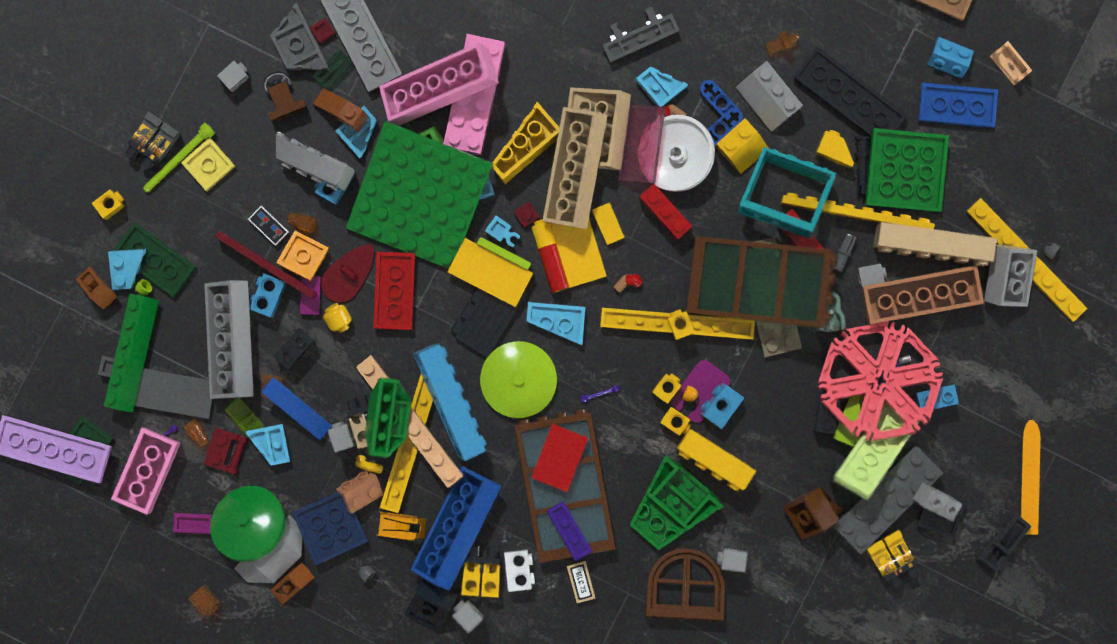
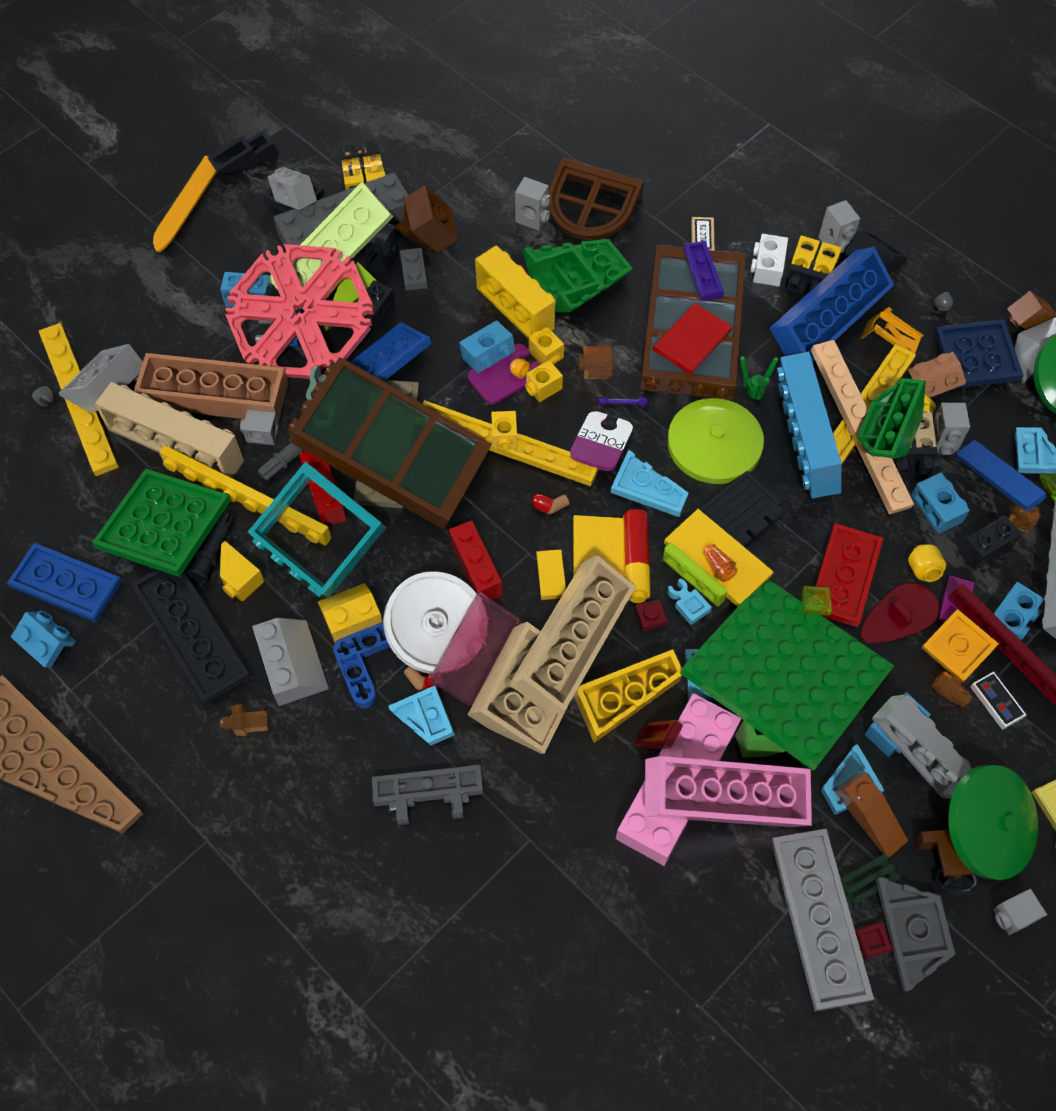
camera: 165 degrees left, 25 degrees down
(260, 125) = (993, 822): none -> green dish
(347, 377) = (928, 497): none -> dark azure brick
(411, 255) = (816, 600): none -> clear neon green plate
(487, 261) = (721, 565): none -> clear orange cone
(495, 118) = (658, 735): none -> dark red tile
(498, 438) = (757, 384): none -> green plant
(607, 343) = (600, 446): none -> piece
(631, 420) = (596, 362): none -> clear orange brick
(800, 368) = (392, 351): none -> blue tile
(811, 470) = (413, 269): none -> dark grey plate

